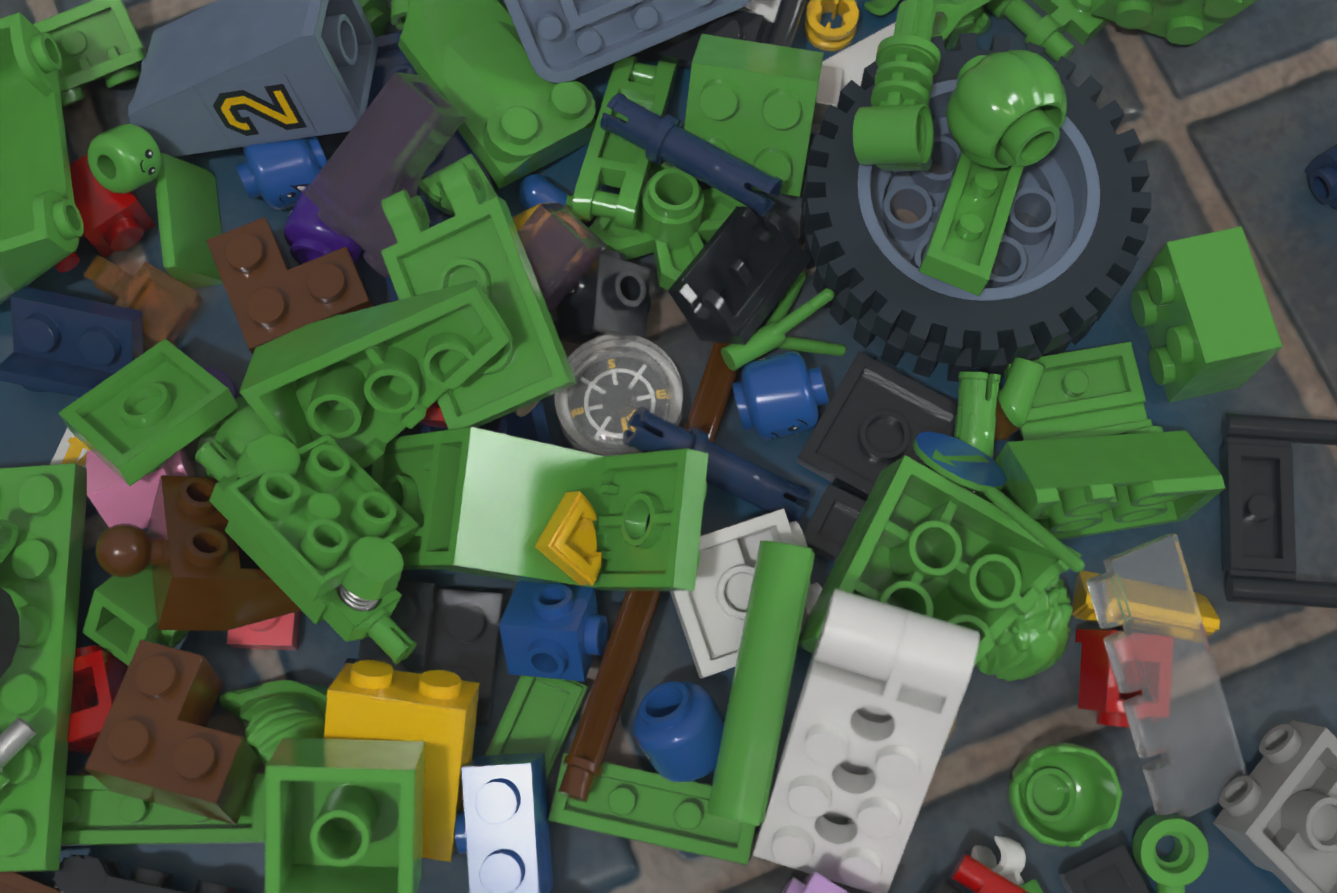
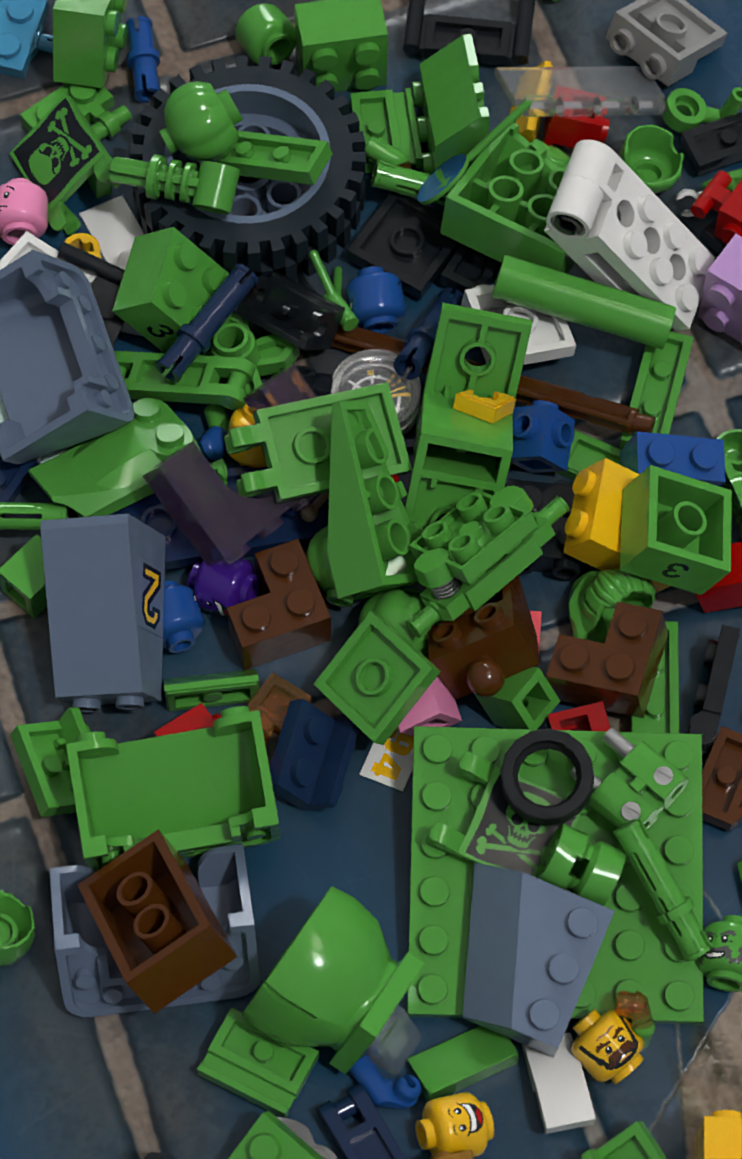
camera: 90 degrees left, 10 degrees down
(124, 158) = (175, 697): bright green piece -> none
(679, 730) = (608, 366): blue head -> none
(1158, 66) = (142, 58): none -> blue pin
(1220, 206) = (265, 32): none -> bright green head

